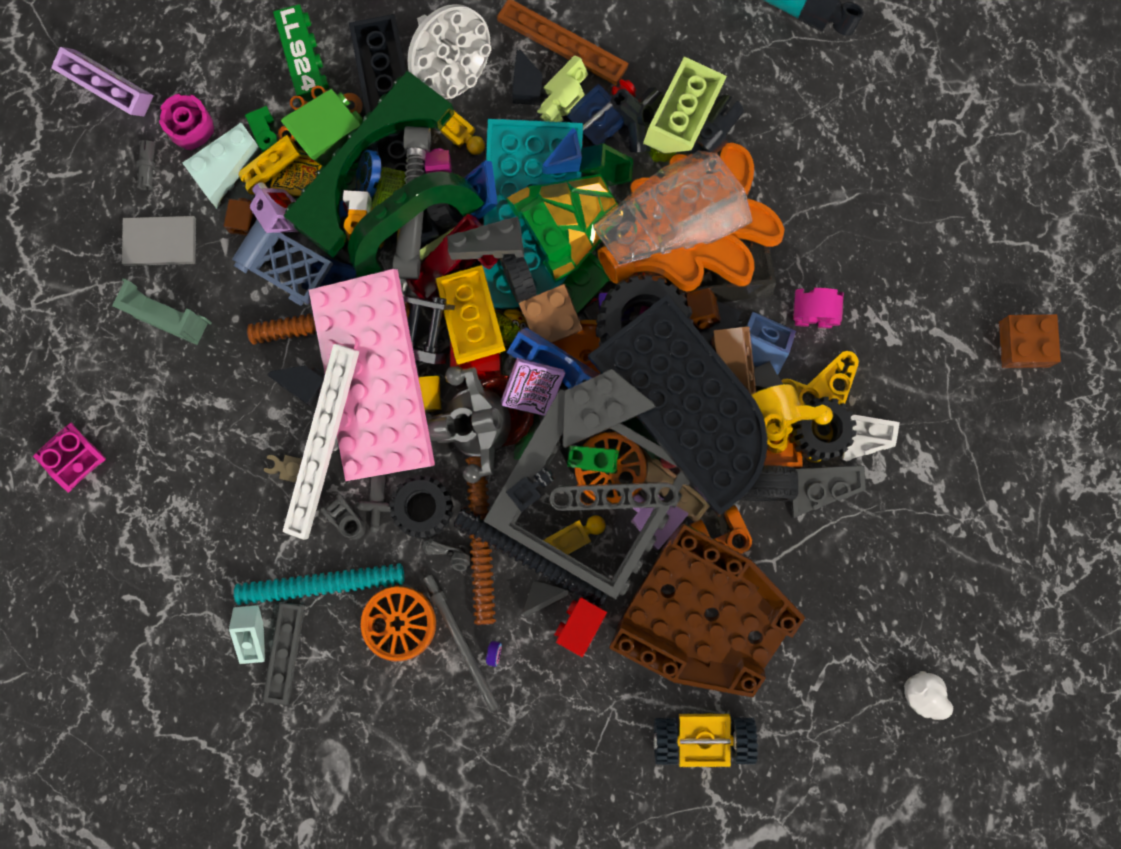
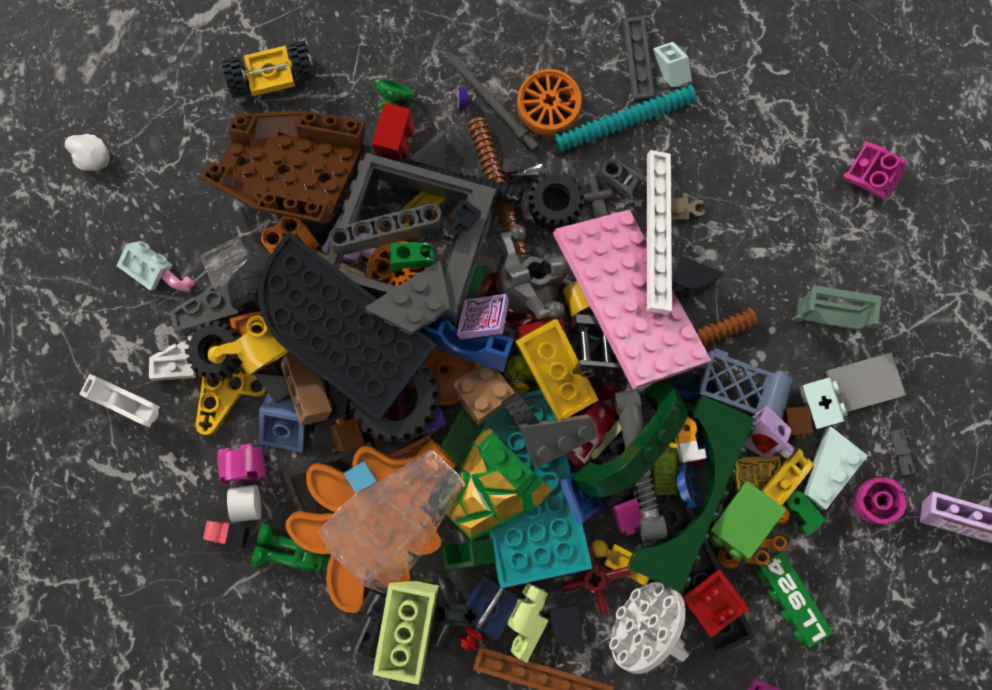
camera: 170 degrees right, 0 degrees up
(208, 214) = (822, 416): none -> light aqua brick
(377, 58) = (714, 603): none -> red plate
(481, 110) = (592, 586): none -> dark red bar
(565, 157) = (507, 546): blue slope -> none
(569, 677) = (393, 92): none -> green hair
(698, 258) = (360, 477): none -> medium azure tile
(779, 204) = (301, 559): none -> green piece
(796, 530) = (224, 262): none -> clear wing
(822, 270) = (244, 503): none -> white piece
(845, 248) = (227, 533): none -> leg
(853, 520) = (174, 282): none -> bright pink arm
(885, 550) = (143, 264): none -> light aqua bracket
(926, 400) = (120, 400): none -> white arch
(1029, 341) = (40, 484): dark orange brick -> none

